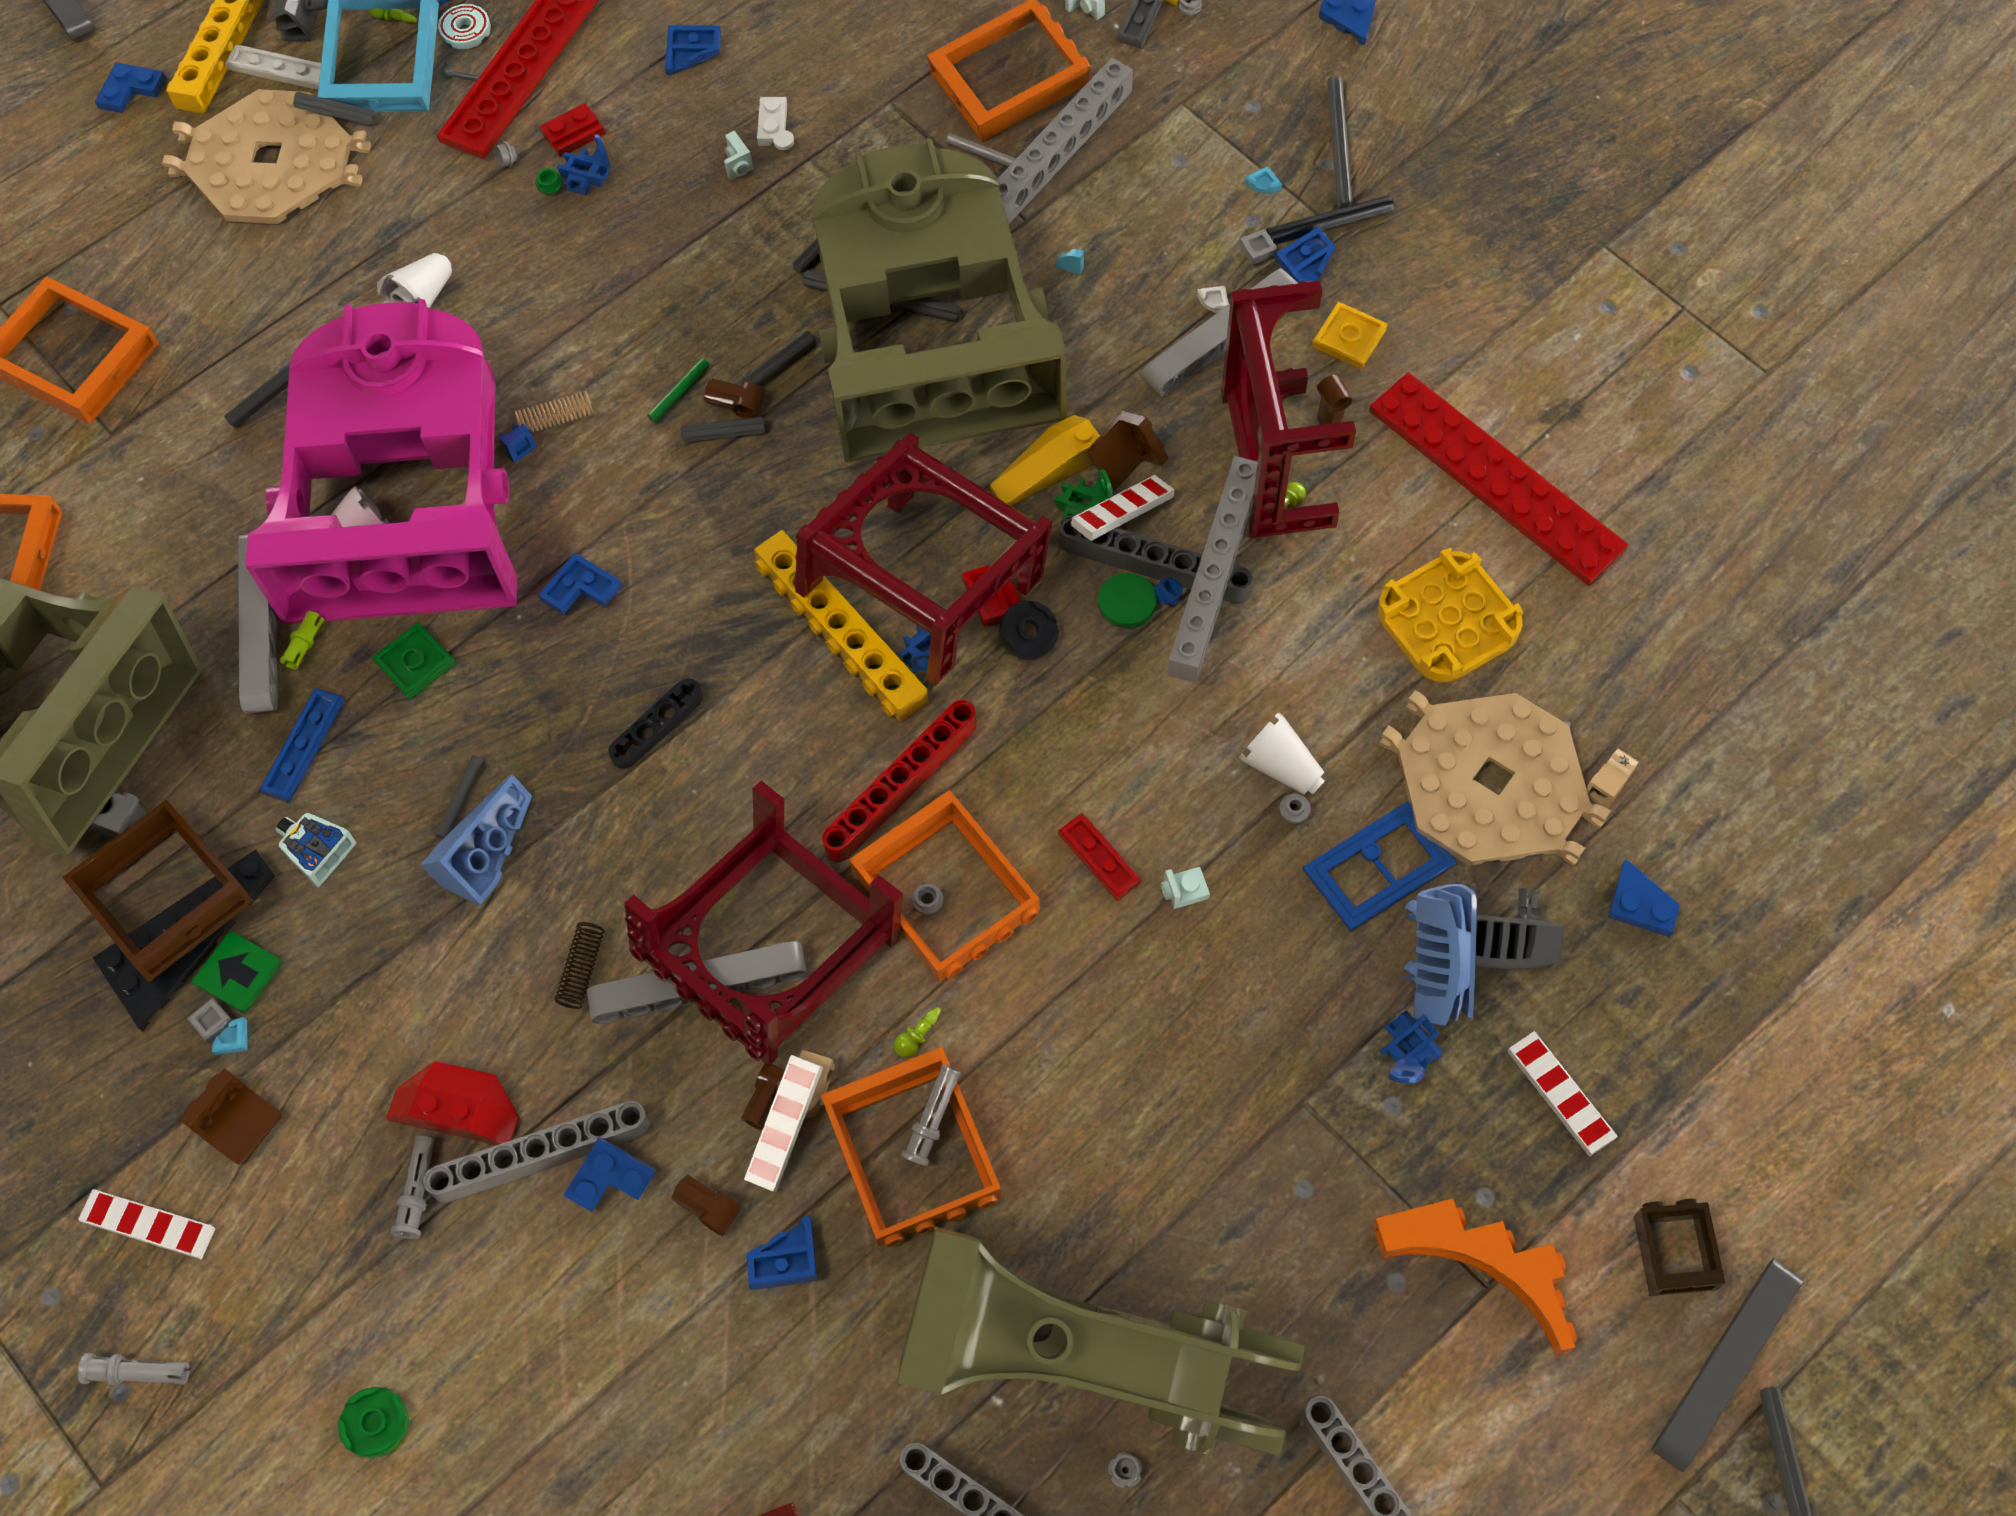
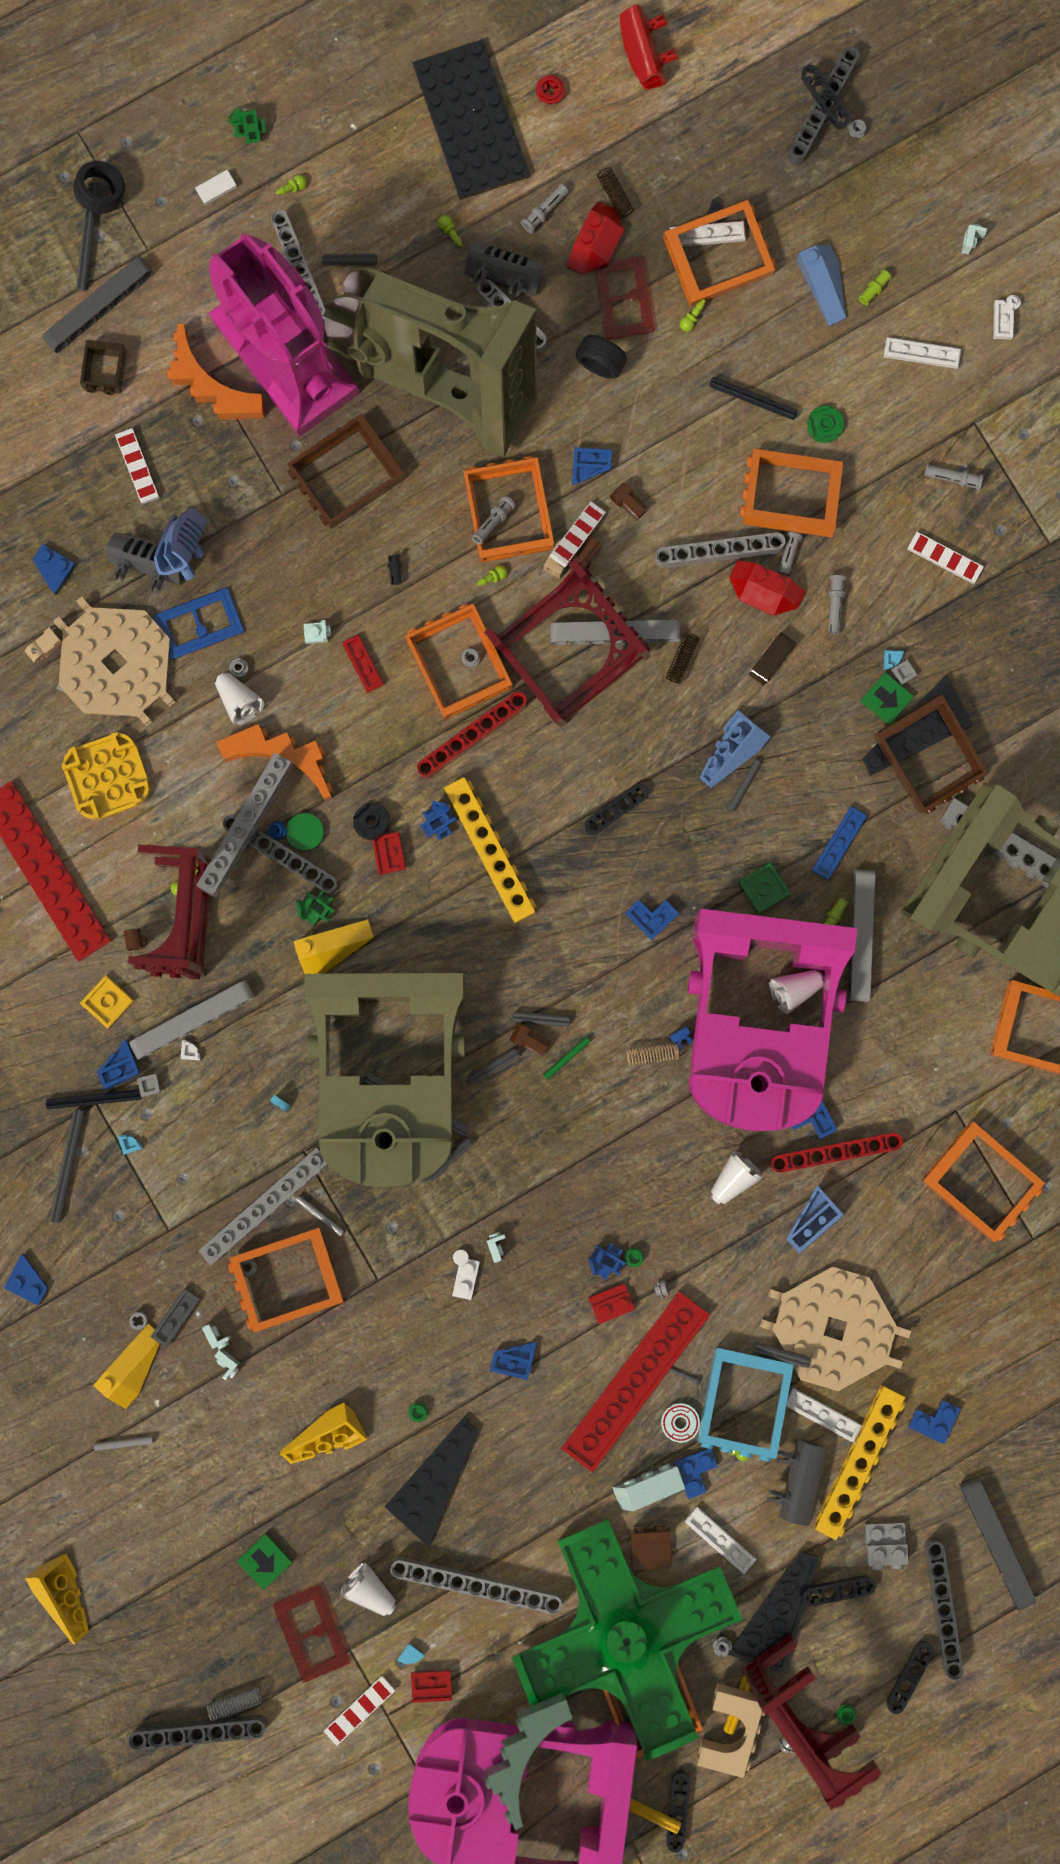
camera: 170 degrees left, 20 degrees up
(231, 1117) = (892, 606): reddish brown bracket -> none
(256, 351) = (845, 1153): none -> red beam
(258, 398) = (850, 1110): dark grey axle -> none
(302, 256) = (814, 1221): none -> medium blue wedge
(314, 845) = (836, 768): torso -> none
(330, 1117) = (836, 594): none -> light grey pin
(430, 994) = (772, 658): none -> dark brown beam
(493, 1279) = (784, 521): none -> orange window
(508, 1442) = (753, 398): none -> black axle
(606, 1166) = (682, 531): blue plate -> none
(792, 1445) = (601, 356): none -> black tyre
(910, 471) = (491, 872): dark red arch -> none
(1083, 1014) = (395, 570): none -> black pin
(1122, 507) = (292, 891): white tile -> none
(1125, 445) = (282, 937): reddish brown bracket -> none
(1192, 703) = (253, 743): none -> orange arch
(1243, 1094) = (360, 425): none -> reddish brown window
(1395, 1316) = (278, 332): none -> dark pink piece
(1417, 1057) = (215, 499): blue piece -> none

